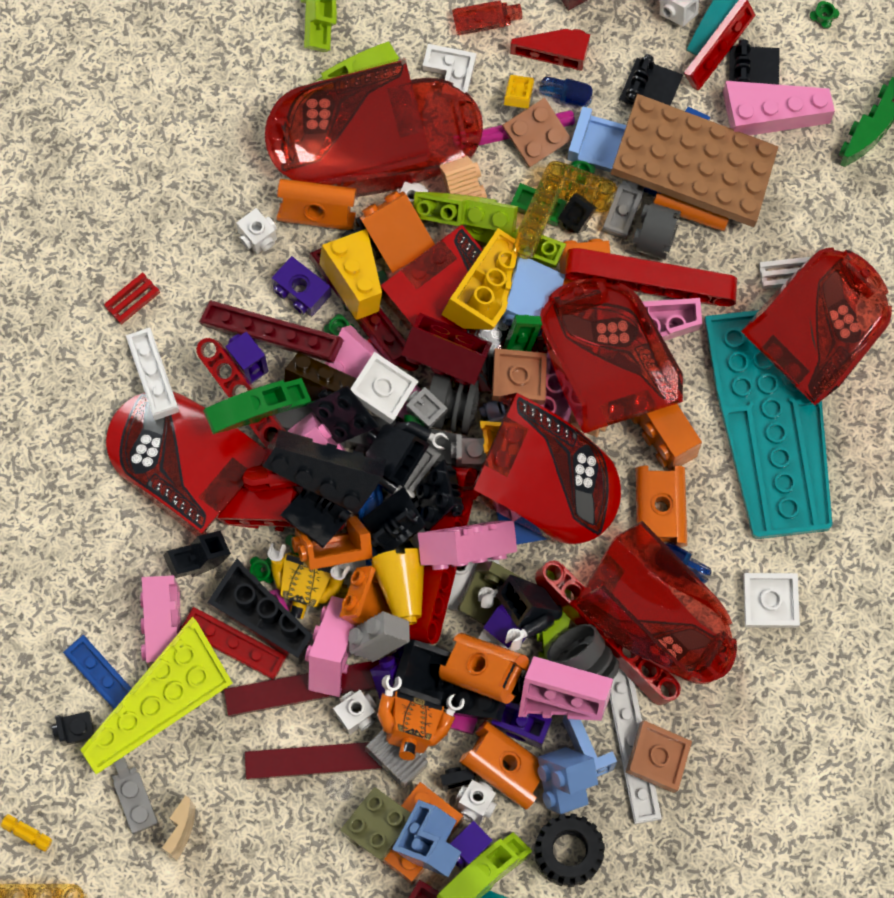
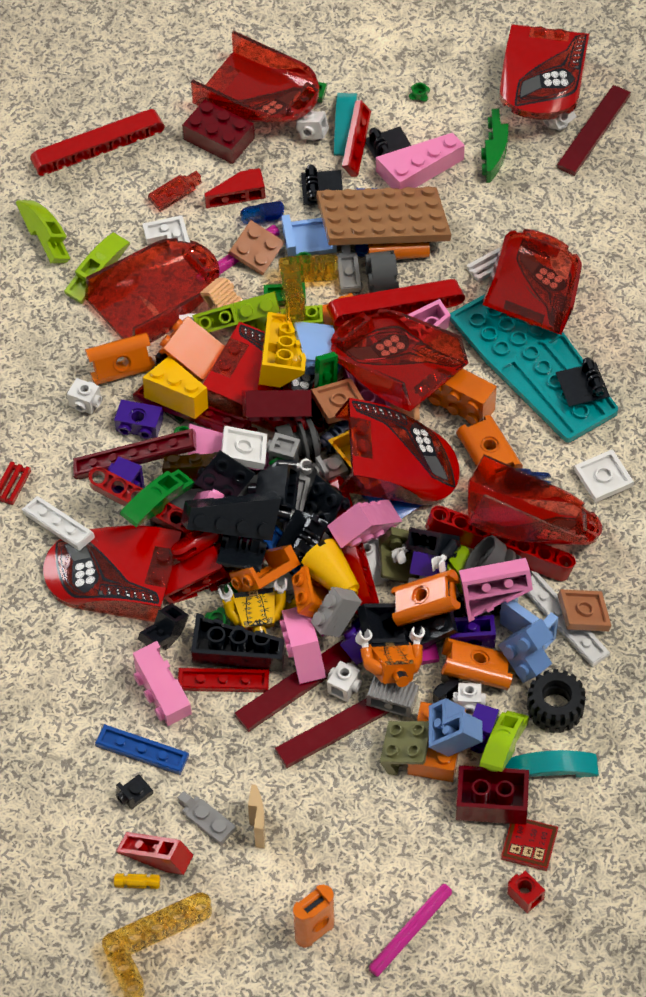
camera: 25 degrees left, 15 degrees down
(59, 811) = (158, 852): none -> red slope
(171, 688) = (195, 726): neon yellow wing -> none
(347, 126) = (115, 292): clear red windscreen -> none
(519, 91) = (228, 226): yellow plate -> none
(577, 214) = (317, 286): black bracket -> none
(806, 478) = (582, 383): none -> black hinge

